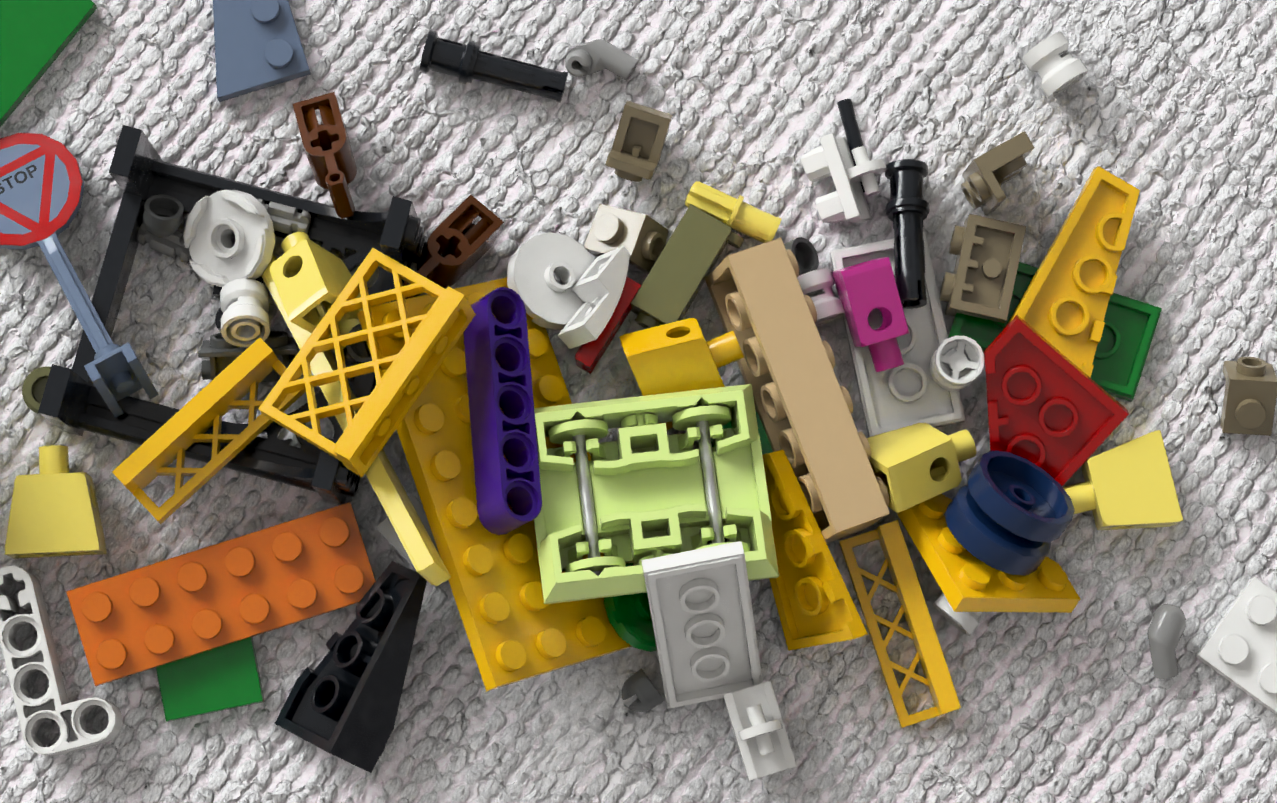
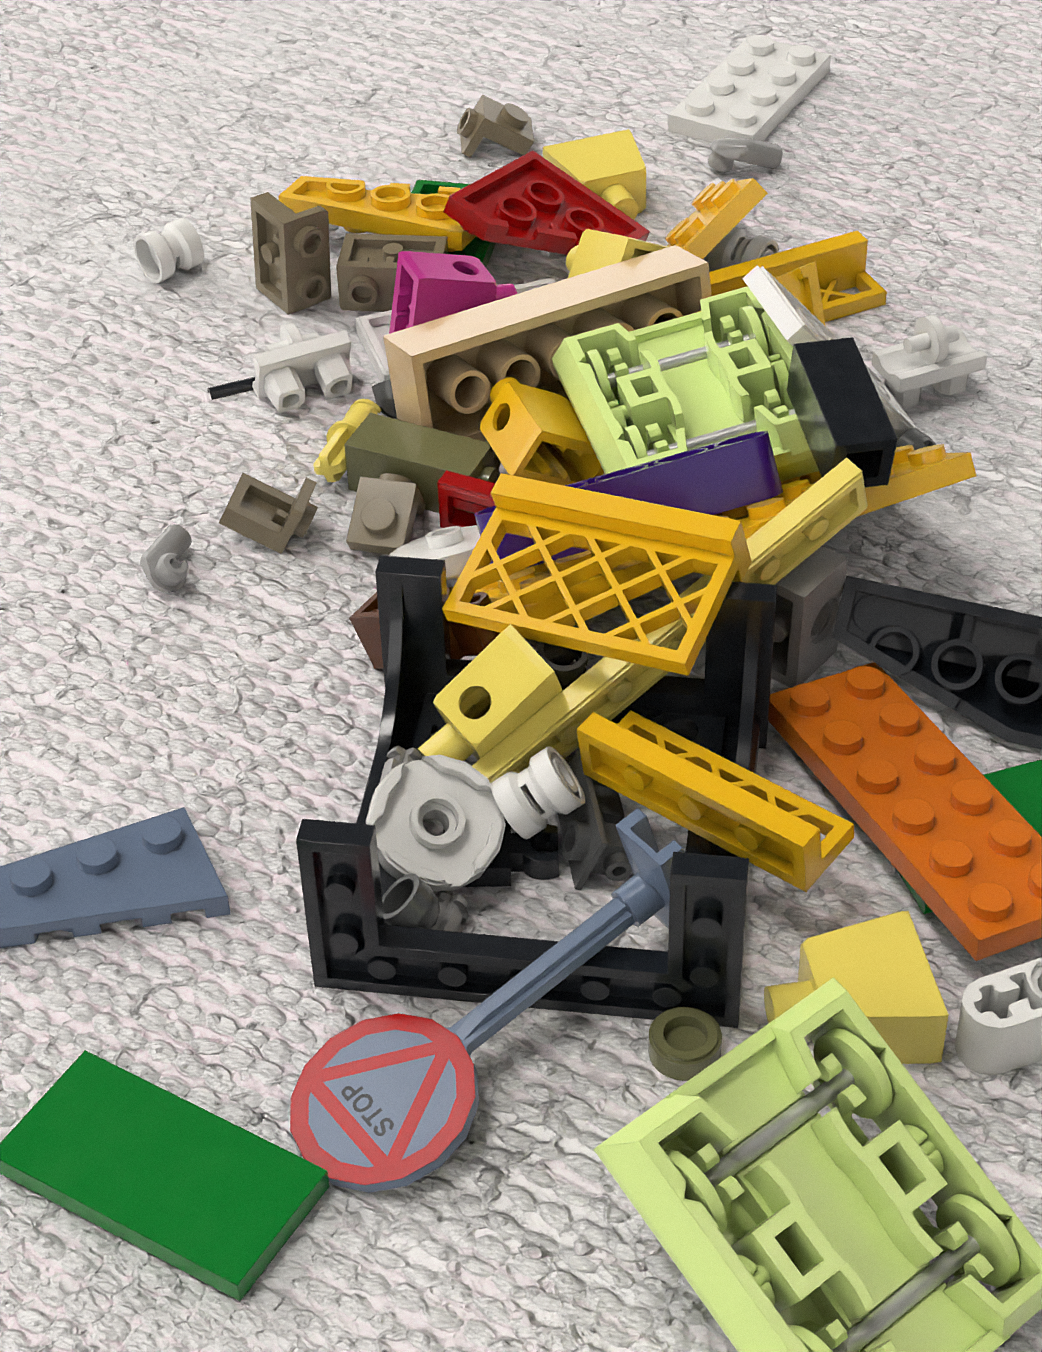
camera: 95 degrees left, 40 degrees down
(328, 149) = (304, 741): reddish brown piece -> none
(470, 63) = (173, 659): black pin -> none
(520, 578) = (841, 409): none -> black brick
(600, 291) = (453, 495): white slope -> none
(907, 212) = (332, 312): black pin -> none
(961, 355) = (500, 253): white wheel -> none
(1009, 513) = (651, 192): dark blue wheel -> none

